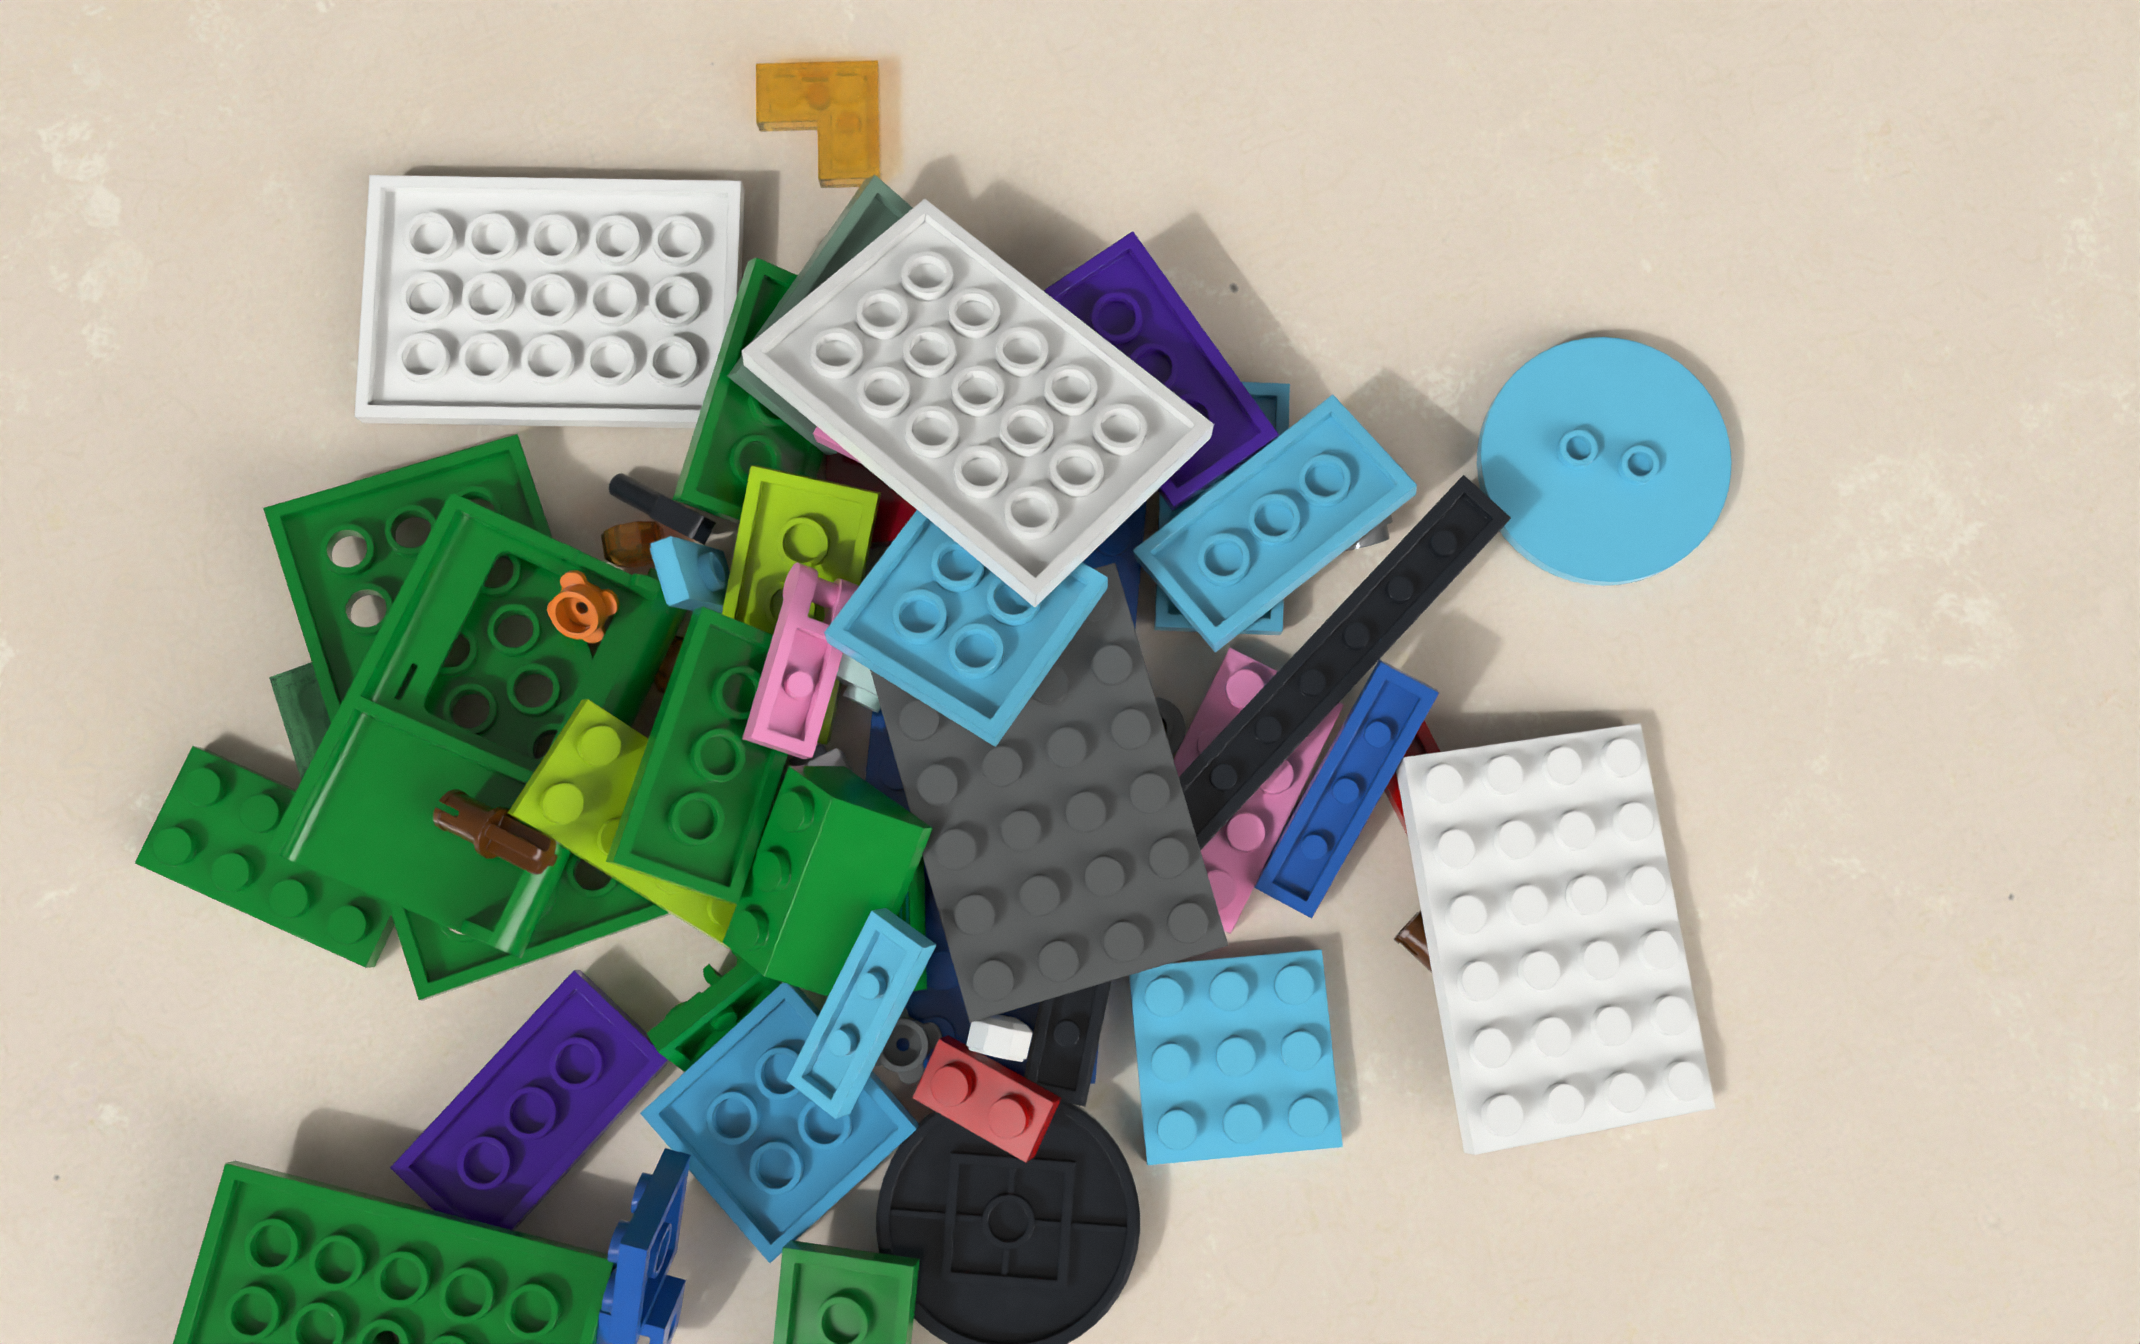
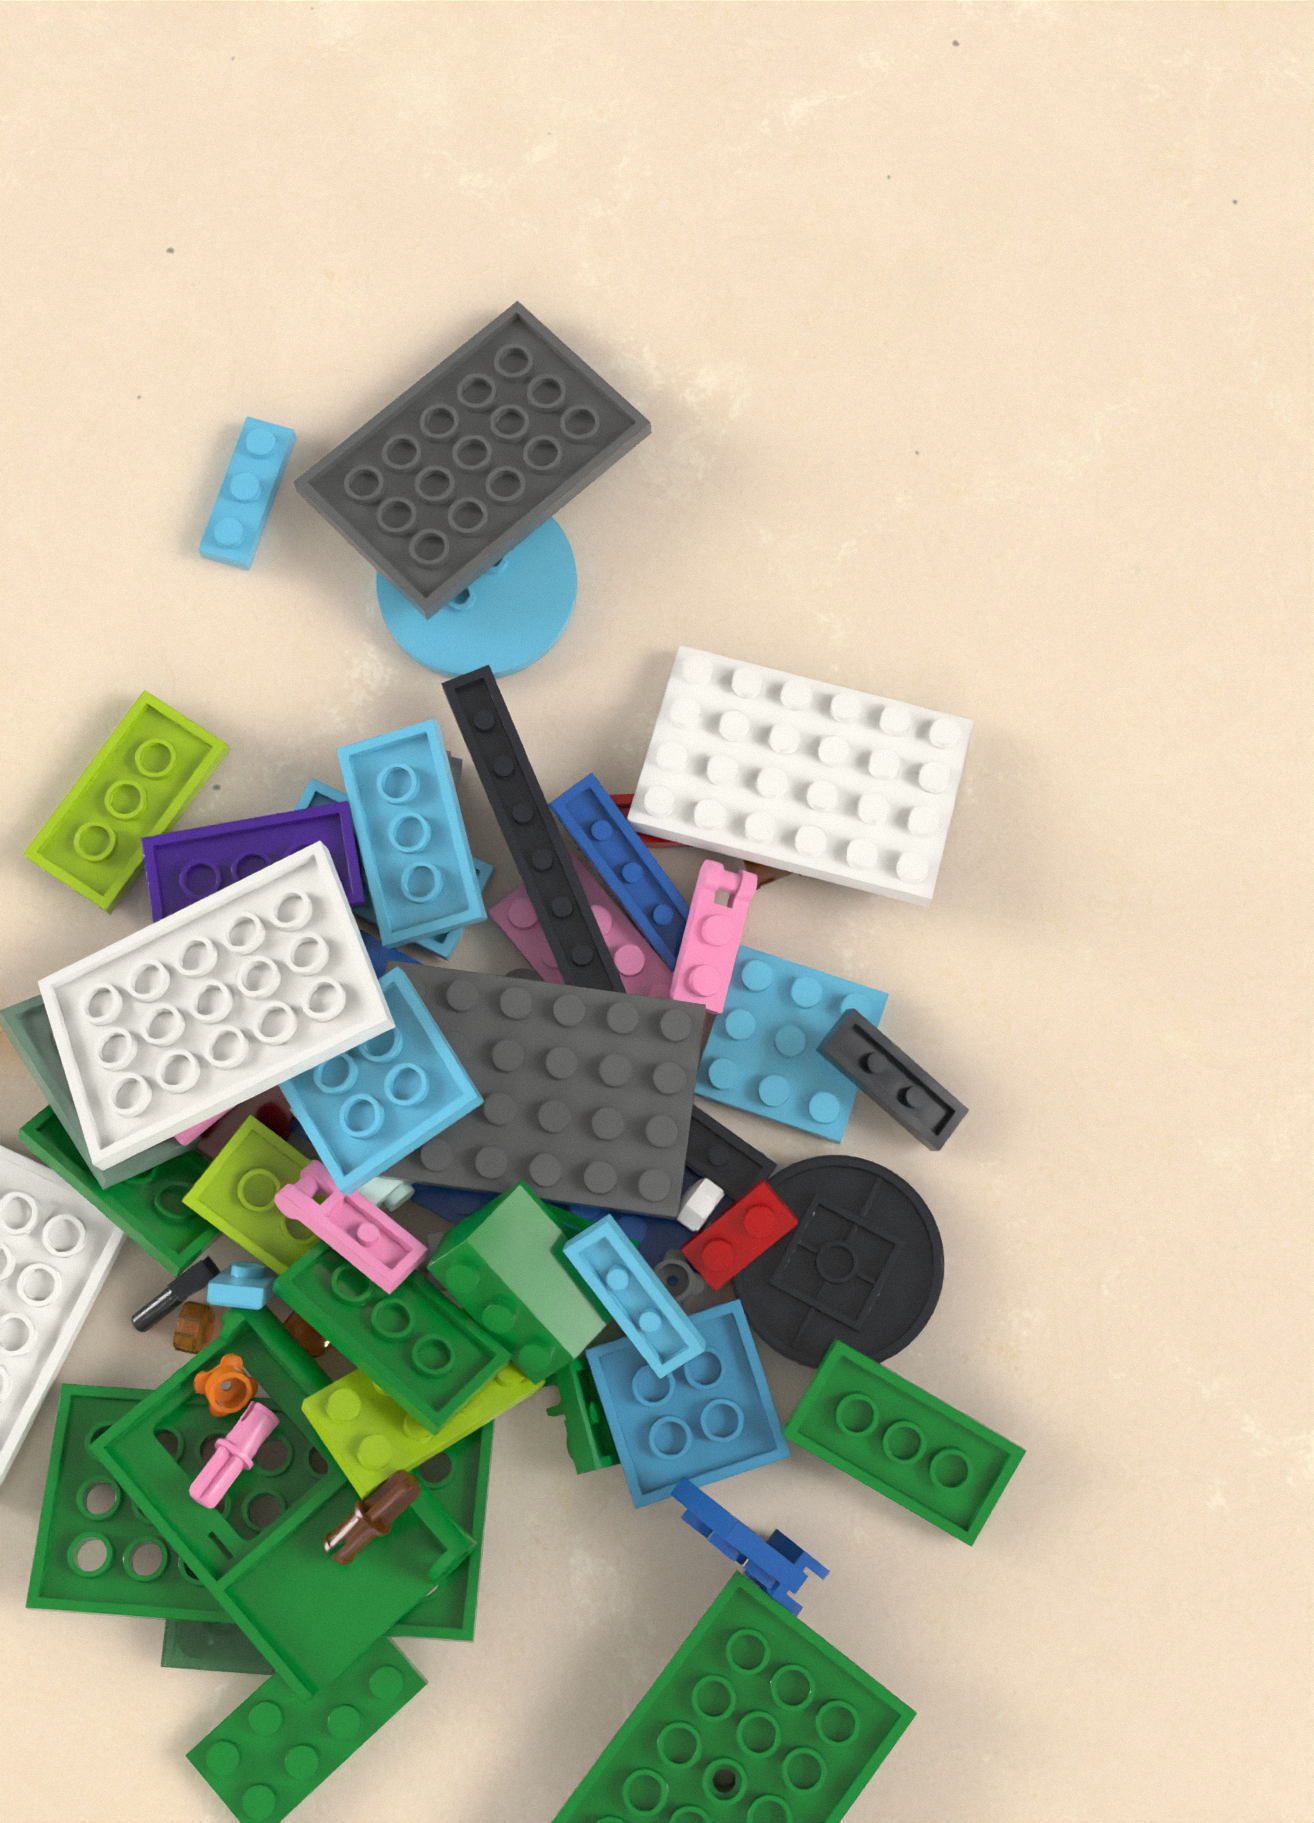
camera: 65 degrees left, 5 degrees down
(508, 649) = (233, 1454): none -> bright pink axle
(533, 1108) = (595, 1593): dark purple plate -> none
(1178, 194) = (127, 792): none -> lime plate
(1243, 1196) = (892, 1079): none -> black plate
(1313, 915) = (712, 937): none -> bright pink plate
(1583, 160) = (247, 493): none -> medium azure plate
(1749, 389) = (472, 459): none -> dark grey plate

